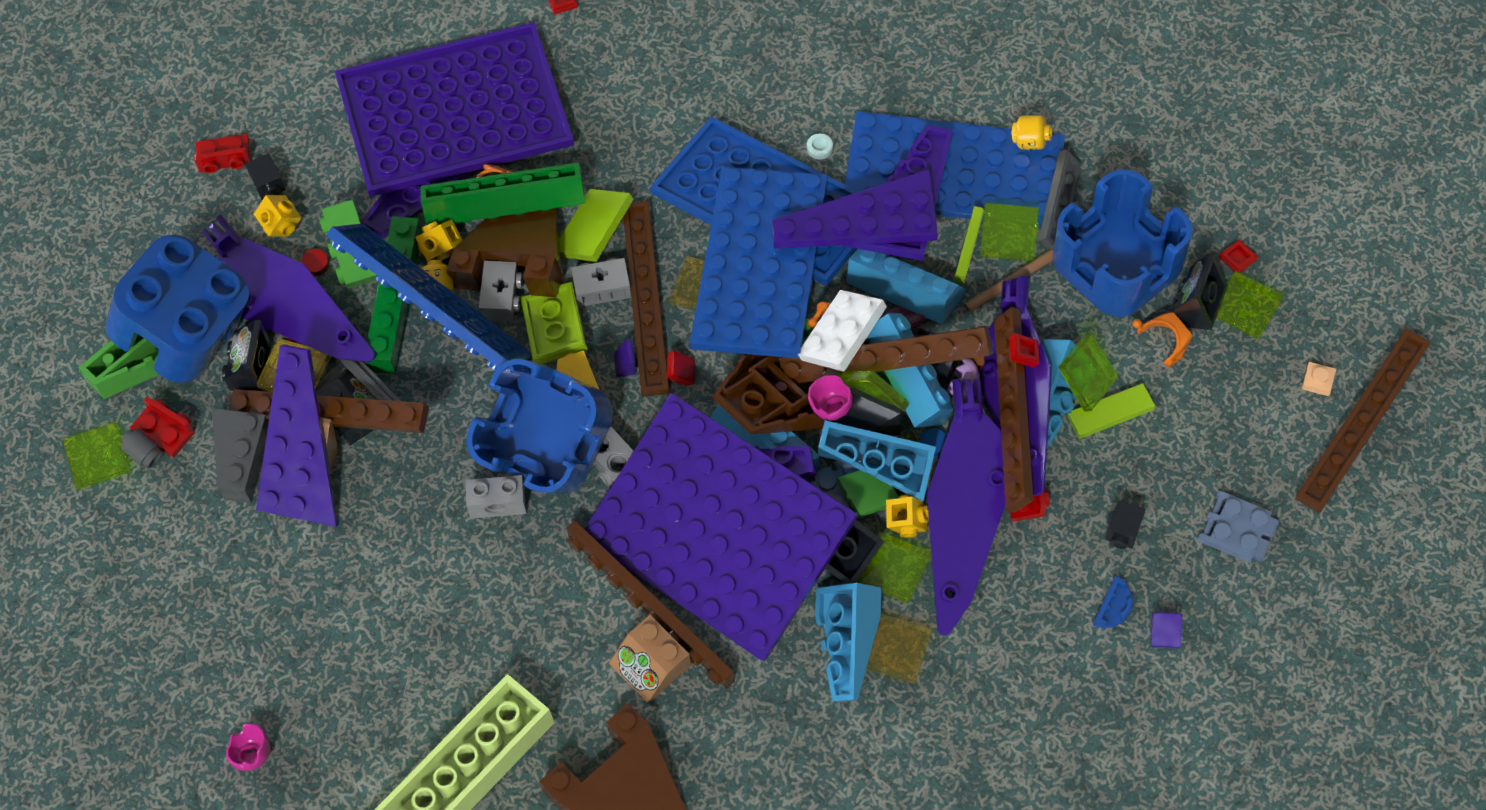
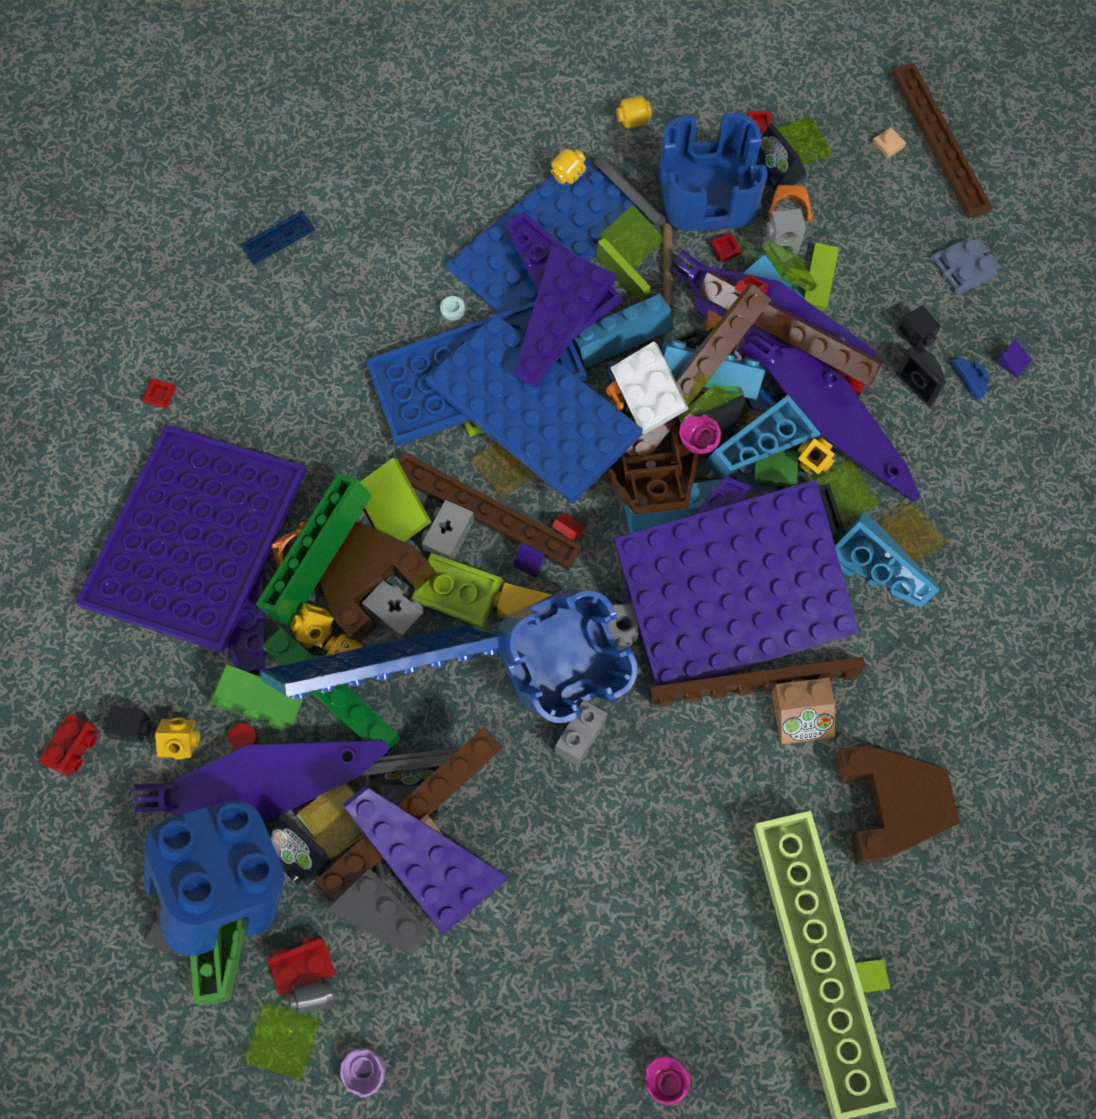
camera: 60 degrees left, 5 degrees up
(108, 515) = (359, 1062): none -> lavender hair
(1072, 314) = (725, 247): none -> red tile
(1075, 554) = (922, 374): none -> black slope
(1121, 345) = (786, 229): none -> light grey brick
(1148, 148) = (634, 112): none -> yellow head

